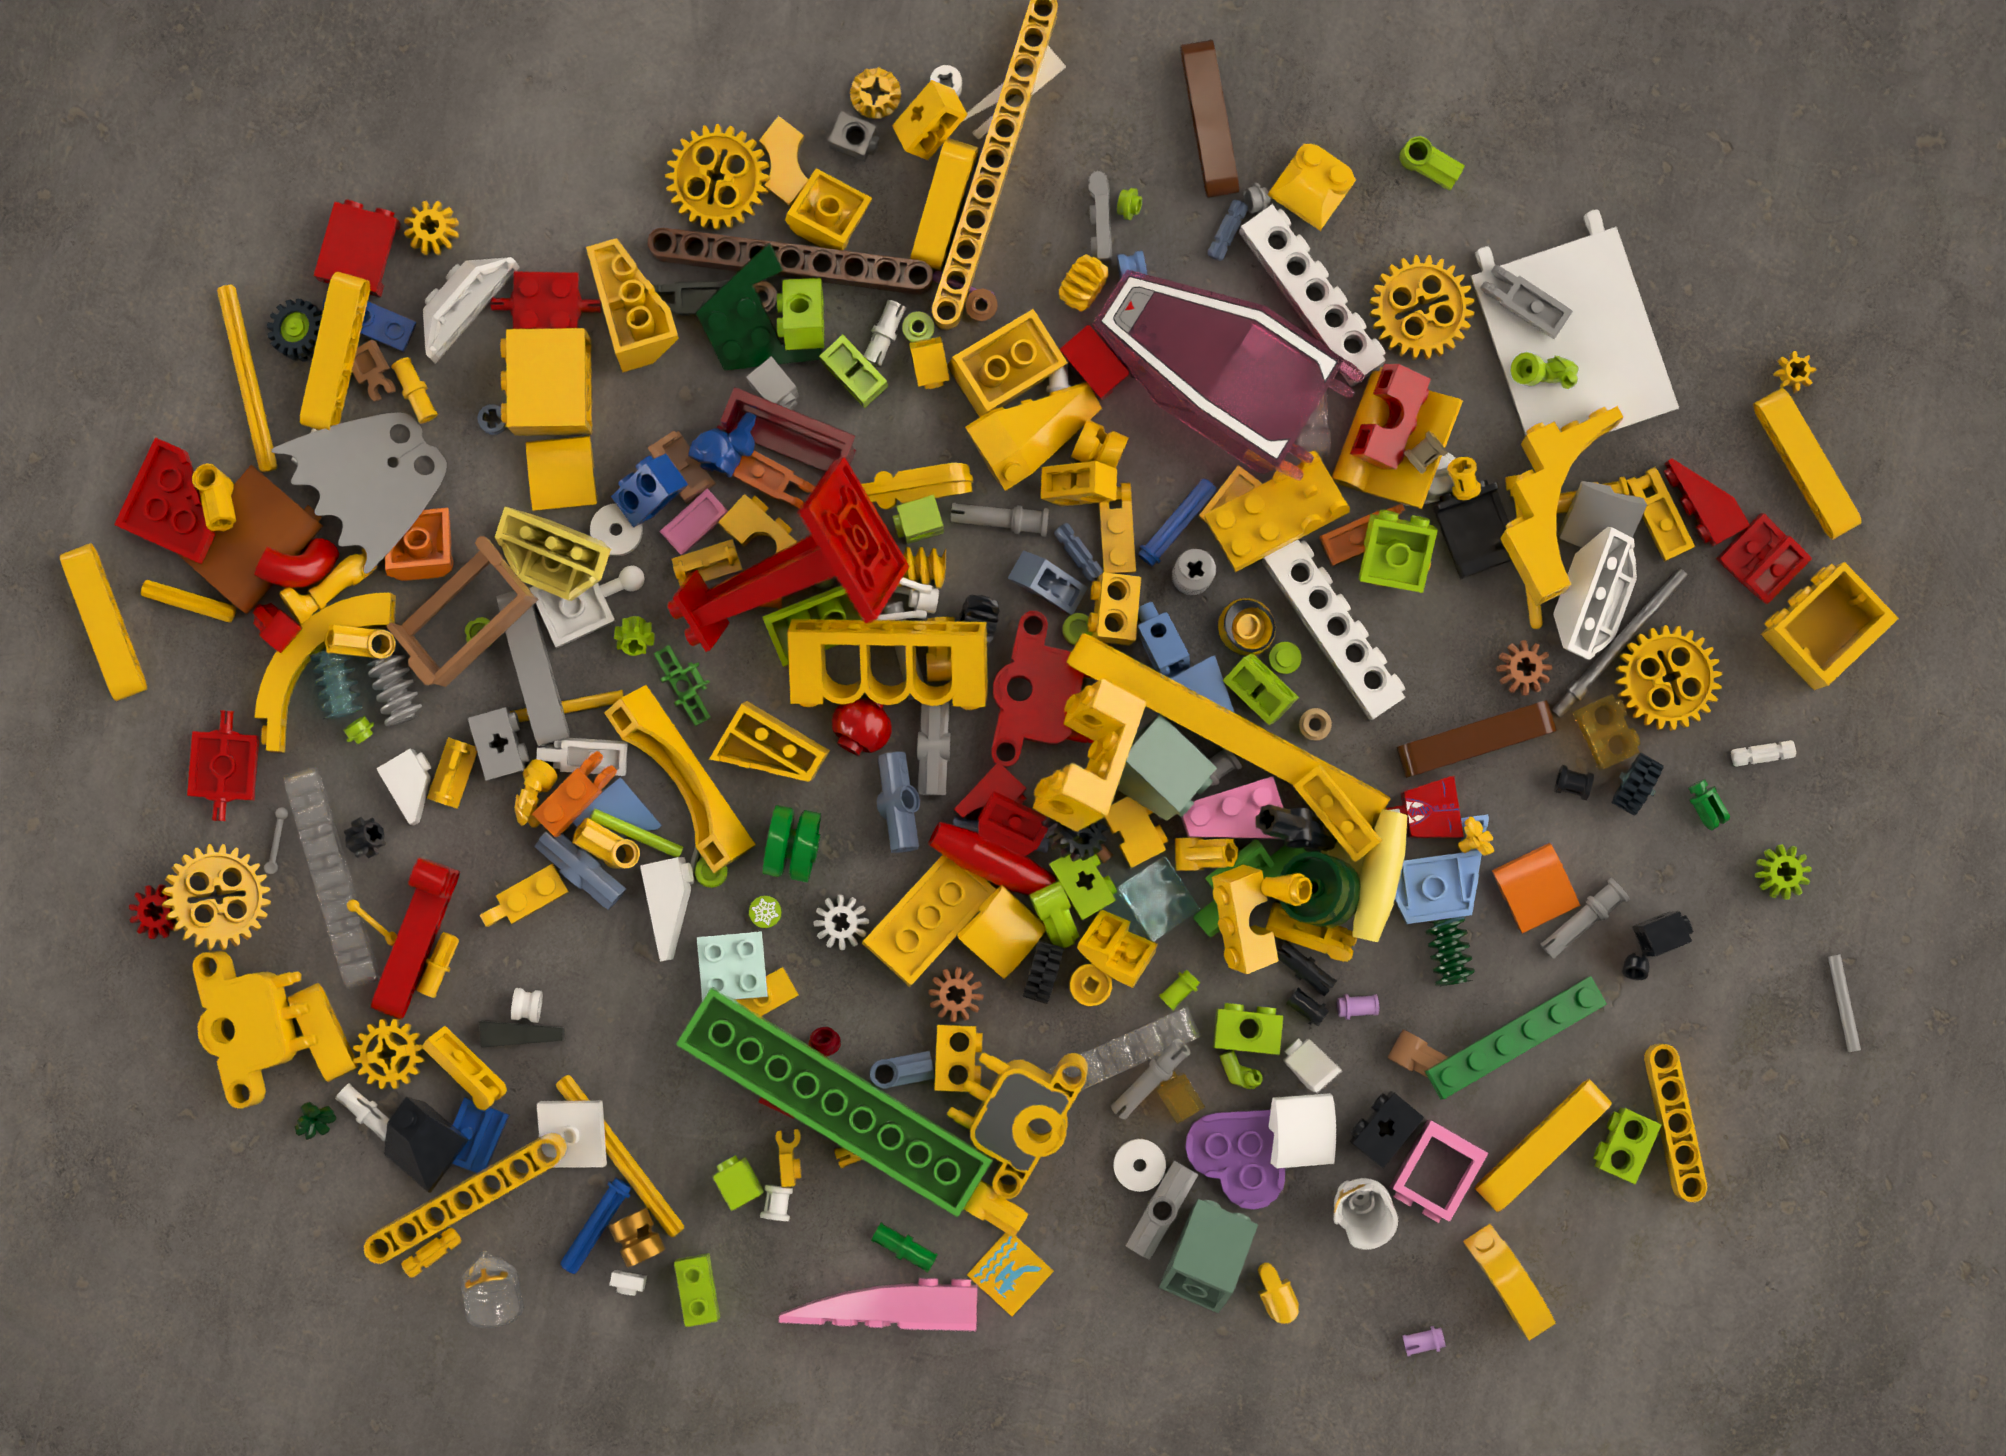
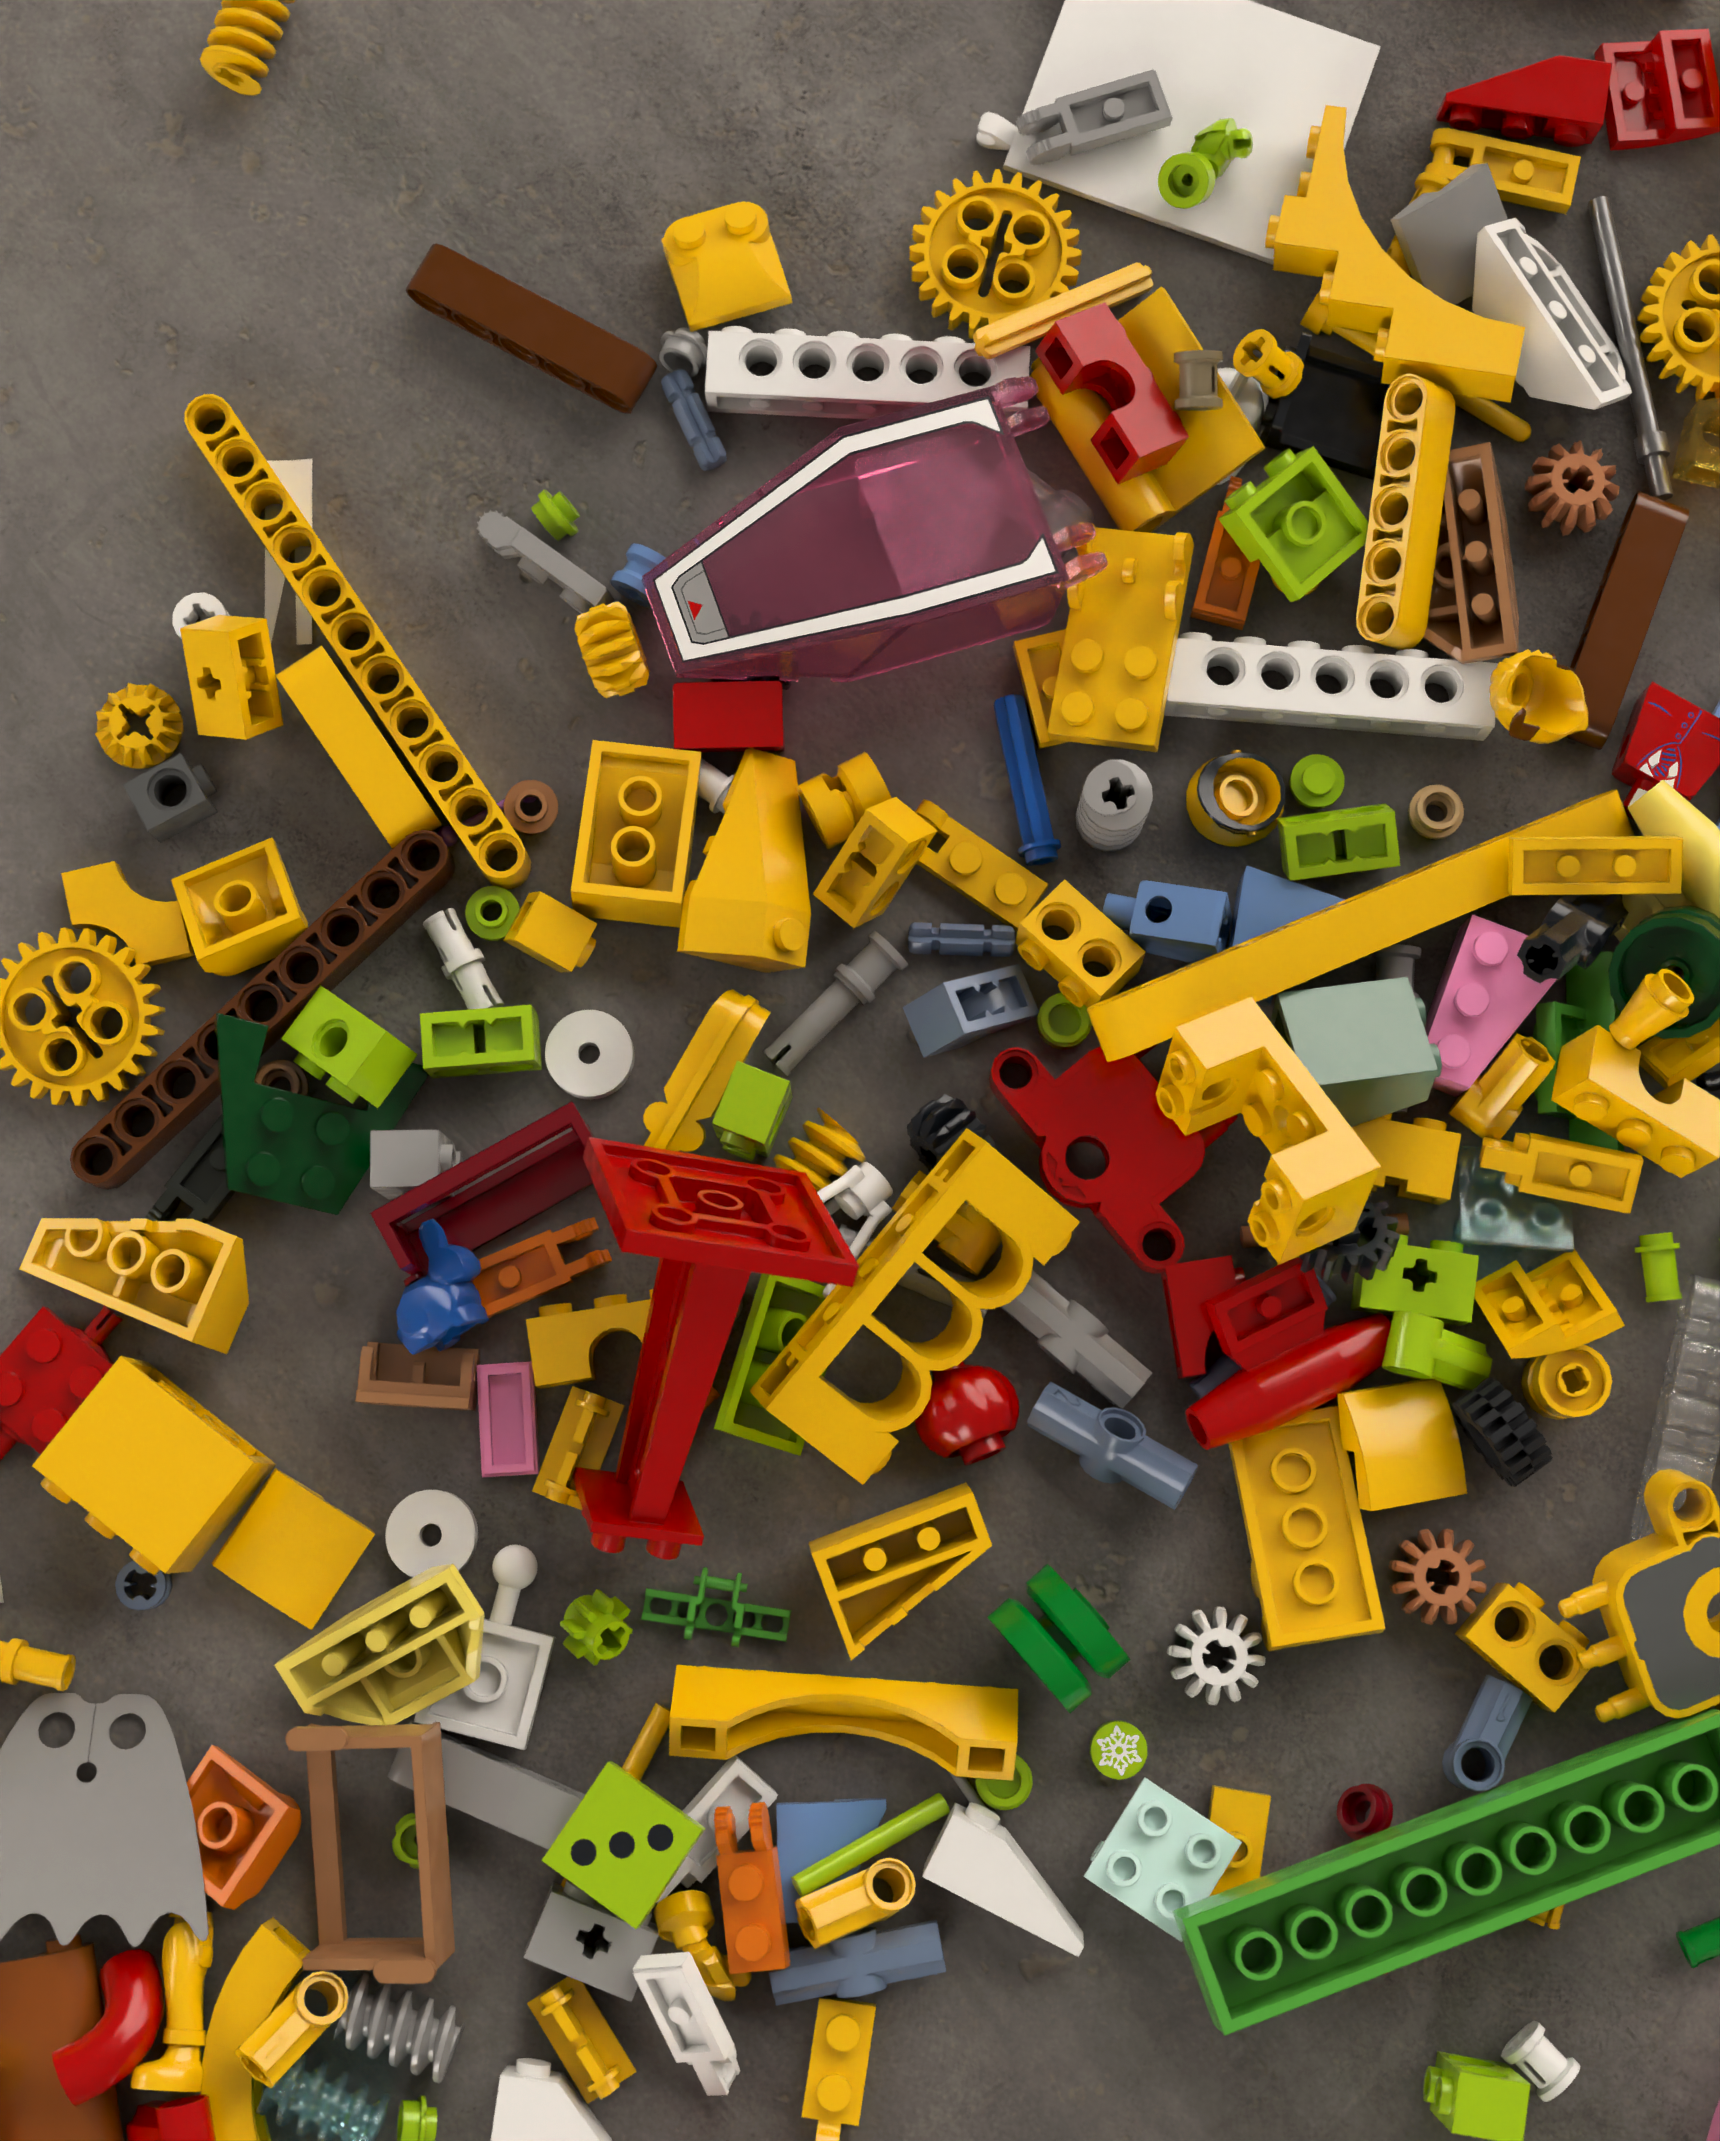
camera: 45 degrees left, 5 degrees down
(498, 811) = (688, 2018): none -> white hinge
(550, 722) = (623, 1844): none -> lime tile
(649, 489) = (413, 1445): blue brick -> none
(789, 1167) = (1503, 2001): yellow plate -> none
(888, 410) = (583, 1030): none -> white piece
(1186, 909) = (1566, 1170): none -> yellow hinge
(1399, 727) = (1537, 697): none -> yellow hair
(1417, 361) = (1038, 319): none -> yellow axle
(1435, 163) = (821, 101): lime piece -> none
(1442, 598) = (1401, 486): none -> yellow beam
(1443, 642) = (1473, 584): none -> medium nougat wedge

